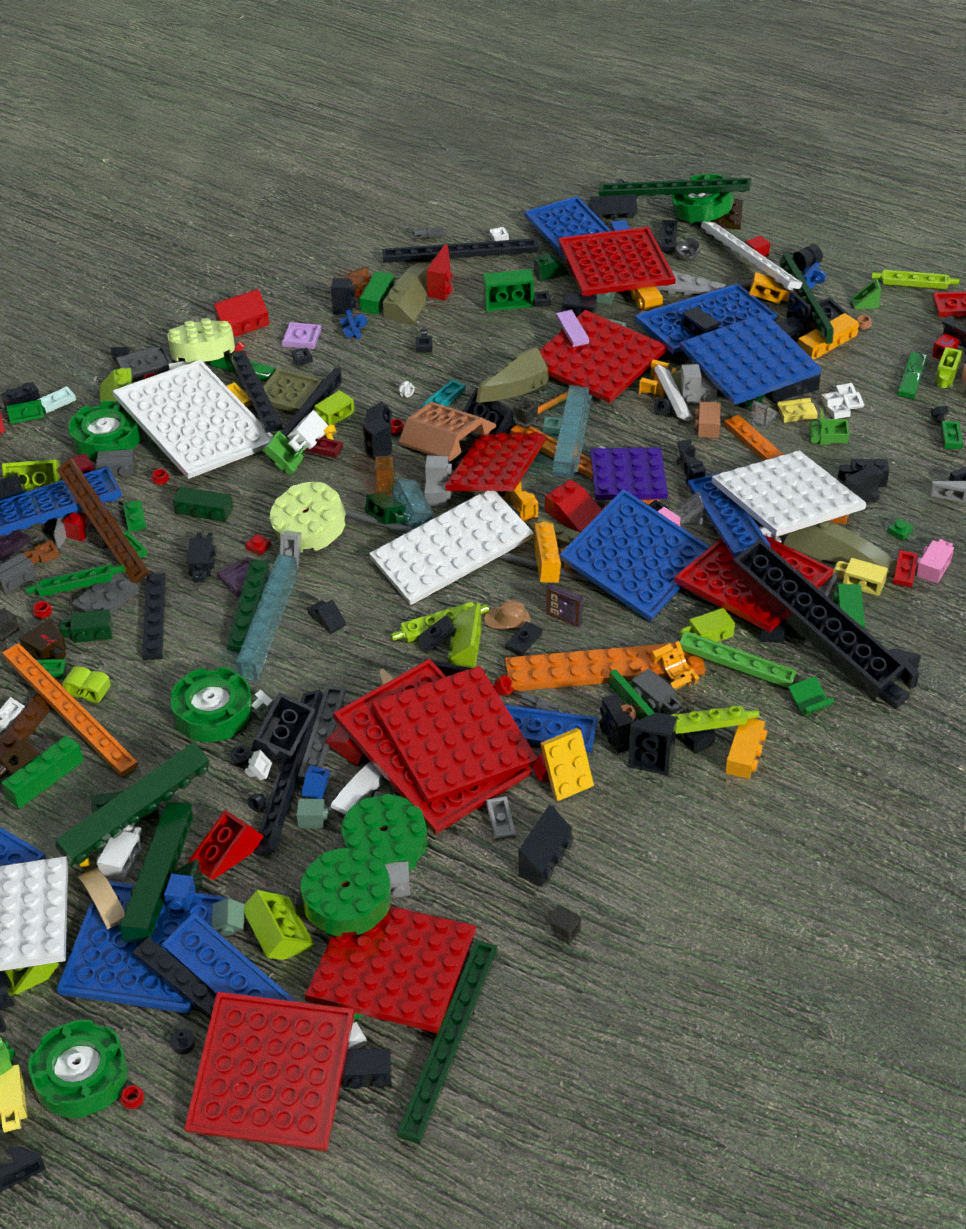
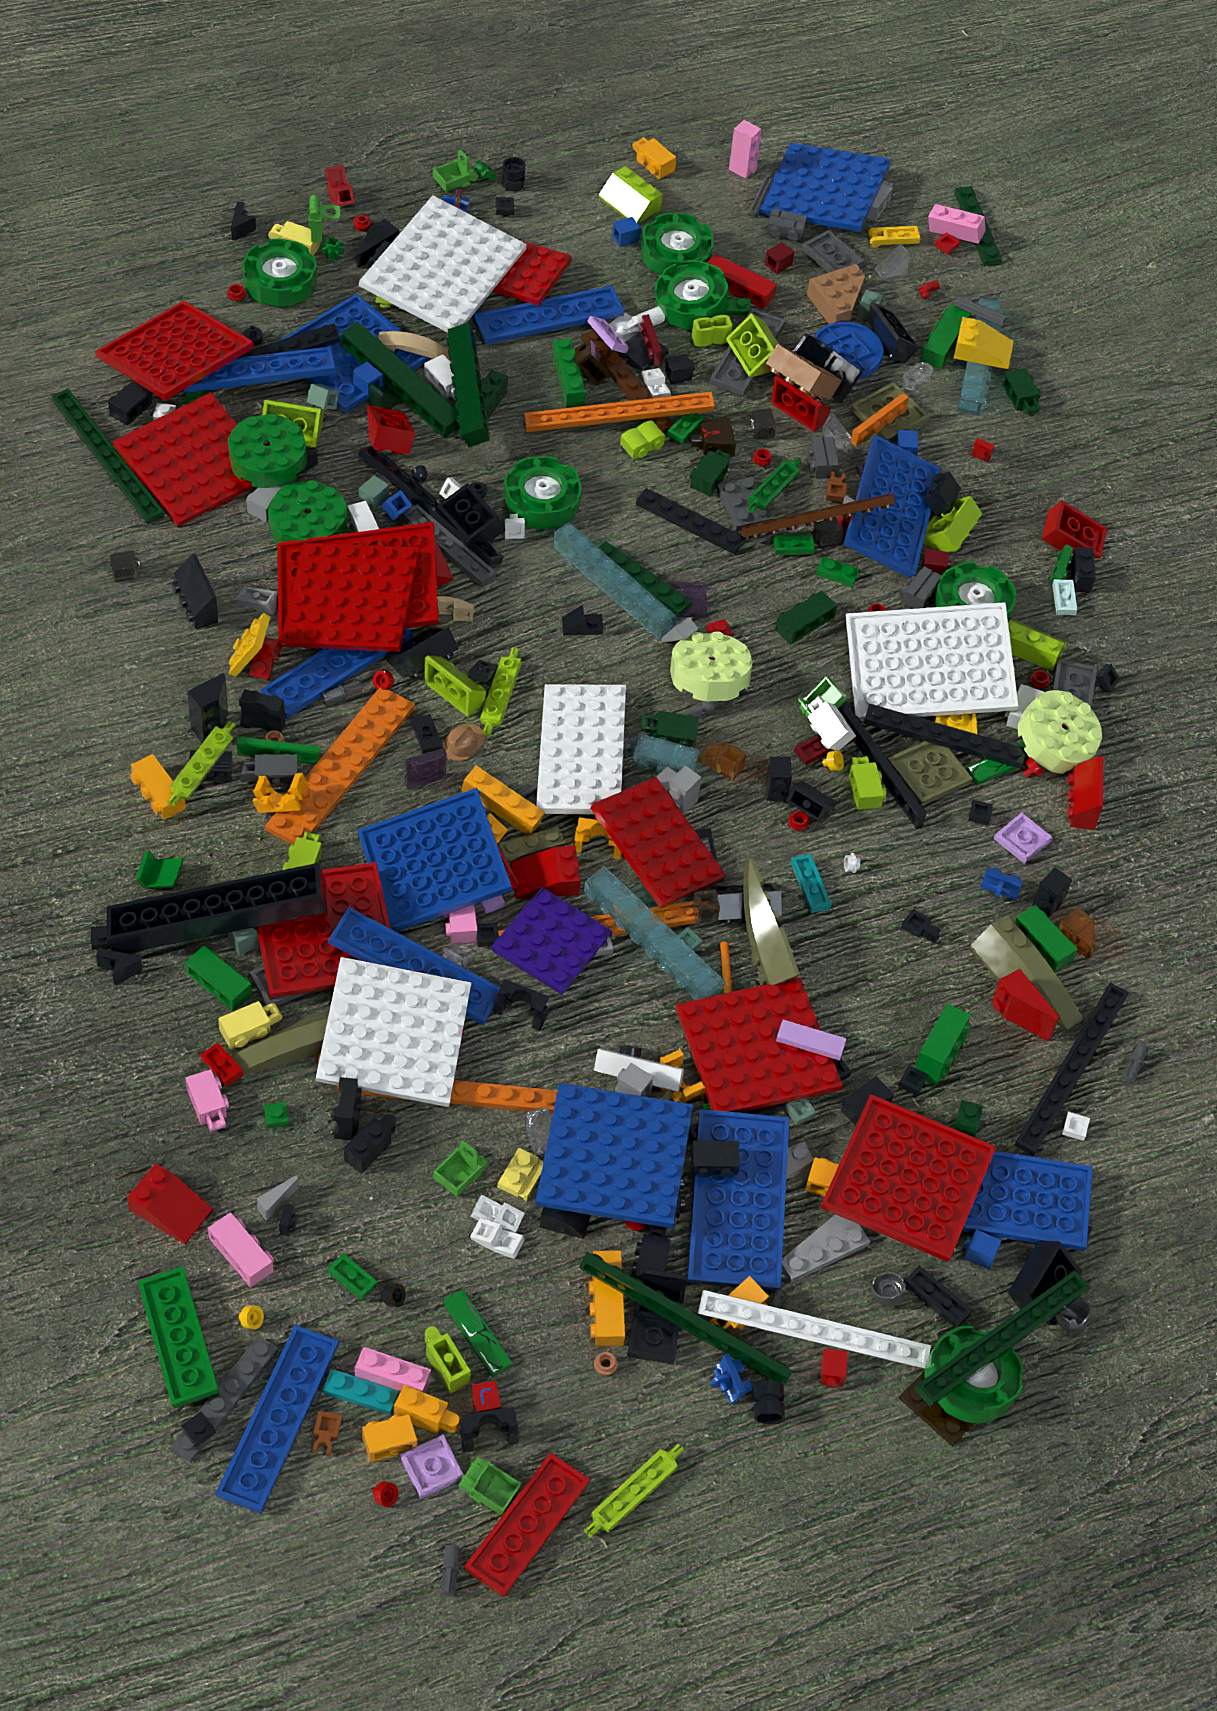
camera: 120 degrees right, 10 degrees up
(200, 557) = (734, 580): black hinge -> none
(439, 428) = (747, 835): nougat slope -> none
(708, 419) = (572, 1070): nougat brick -> none
(737, 659) = (247, 846): bright green plate -> none
(868, 296) = (642, 1404): bright green slope -> none

